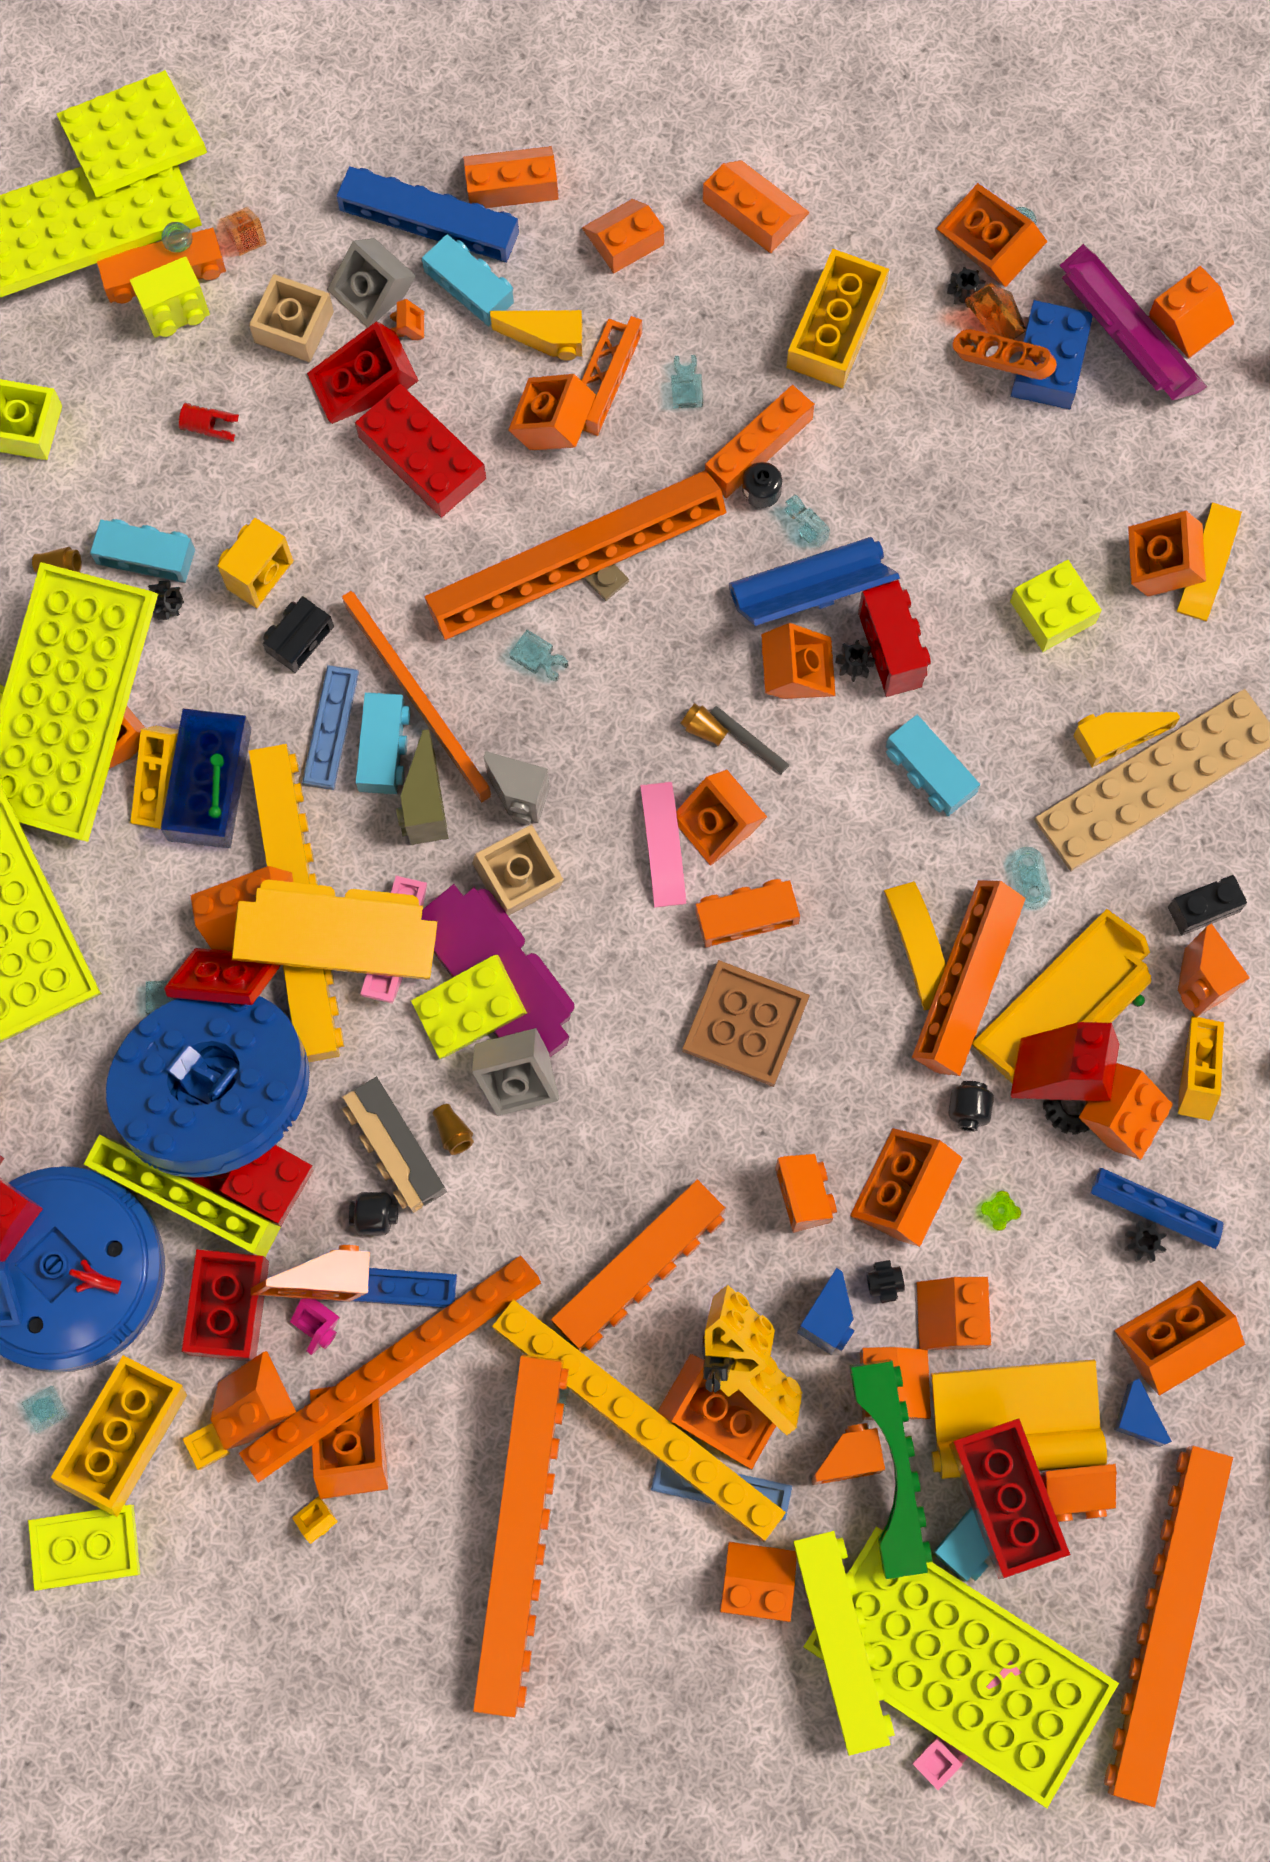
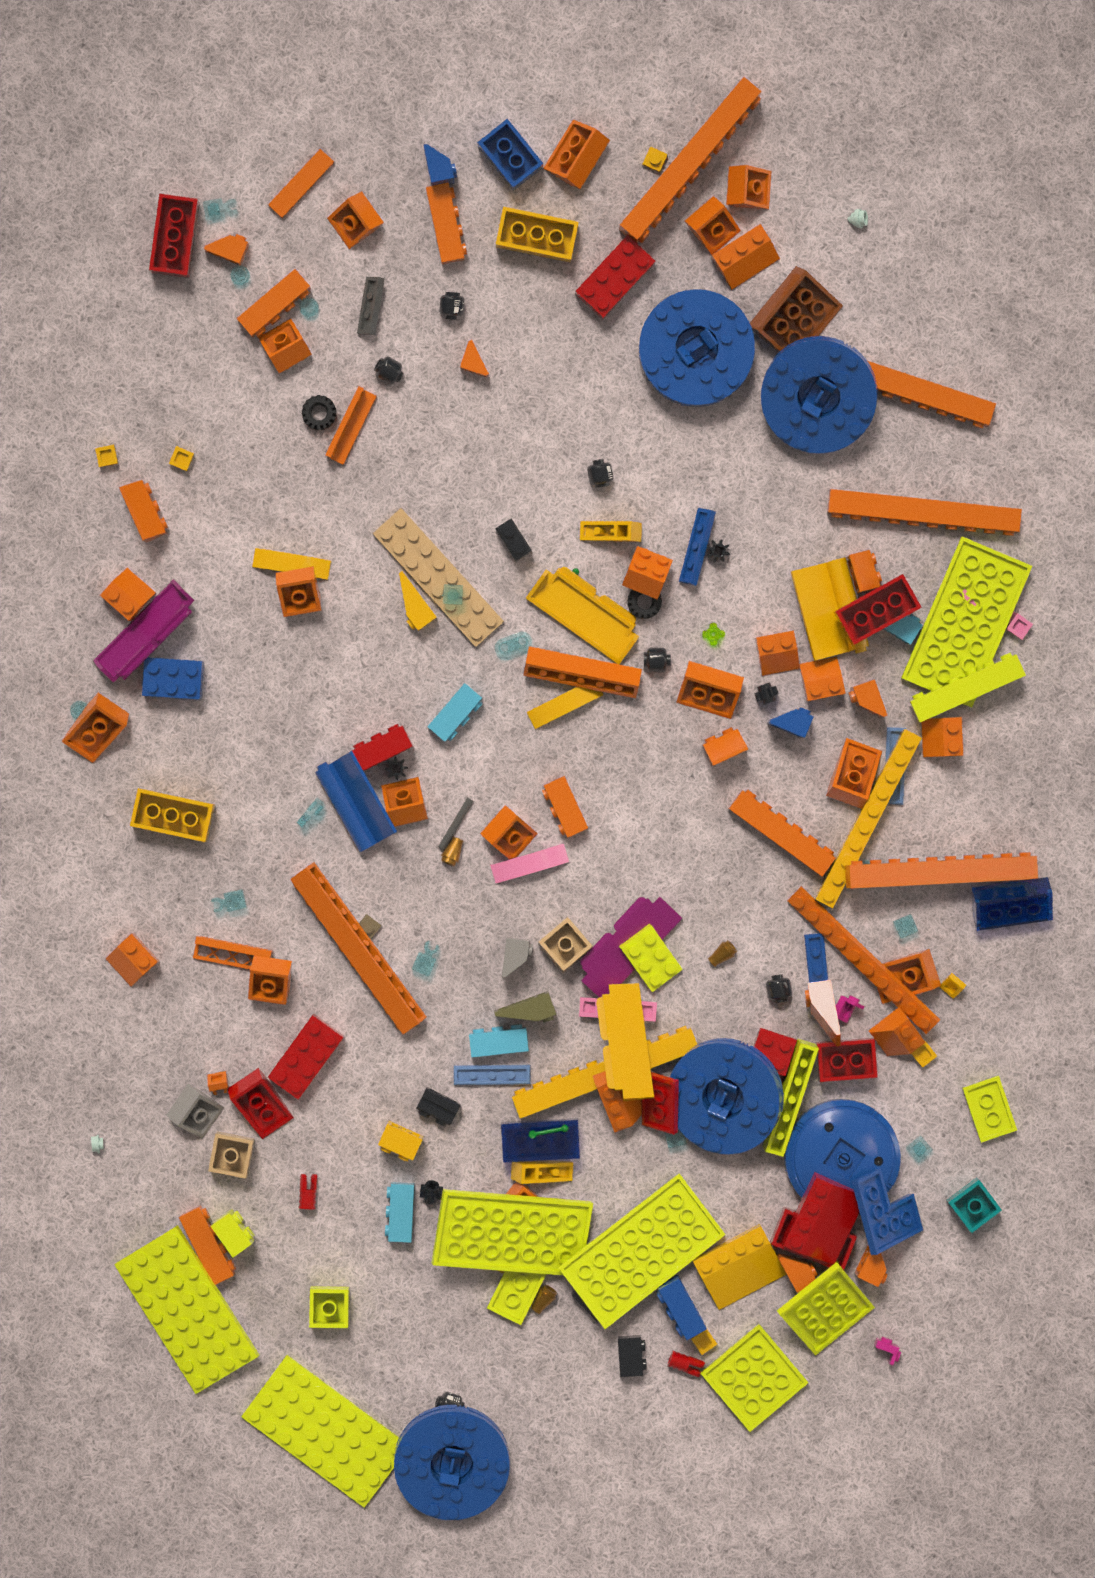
camera: 100 degrees left, 15 degrees up
(62, 558) = (416, 1260): pearl gold cone -> none
(94, 1279) = (849, 1134): red bar -> none
(119, 1436) = (928, 1101): yellow brick -> none
(131, 133) = (118, 1285): neon yellow plate -> none
(176, 237) = (192, 1237): clear light blue plate -> none
(244, 230) = (170, 1200): clear orange slope -> none
(352, 141) = (97, 1143): none -> light aqua plate
(394, 1144) = (736, 985): piece -> none
(417, 696) = (465, 1027): orange tile -> none
(427, 213) = (142, 1083): blue brick -> none
(436, 1454) = (905, 926): none -> clear light blue plate
(437, 1655) = (1012, 903): none -> clear blue brick
(467, 278) = (183, 1050): medium azure brick -> none
(511, 177) = (103, 1038): orange slope -> none
(515, 1072) = (685, 923): light grey slope -> none
(548, 331) = (210, 990): yellow slope -> none
(738, 1357) = (829, 767): yellow piece -> none
(746, 1023) = (630, 796): medium nougat plate -> none
(752, 204) = (96, 880): orange slope -> none
(760, 439) = (263, 849): orange brick -> none
(762, 485) = (294, 836): black head -> none
(901, 1540) = (836, 689): green arch -> none
(964, 284) = (139, 736): black gear -> none
(997, 311) = (151, 715): clear orange slope -> none
(1005, 350) = (182, 708): orange beam -> none
(1055, 605) = (340, 653): neon yellow brick -> none
(1067, 1063) = (628, 610): red slope -> none
(1130, 789) = (452, 594): none -> clear light blue plate
(1139, 1417) = (817, 542): blue slope -> none
(1181, 1337) = (768, 525): orange slope -> none
(1208, 972) = (557, 535): orange slope -> none

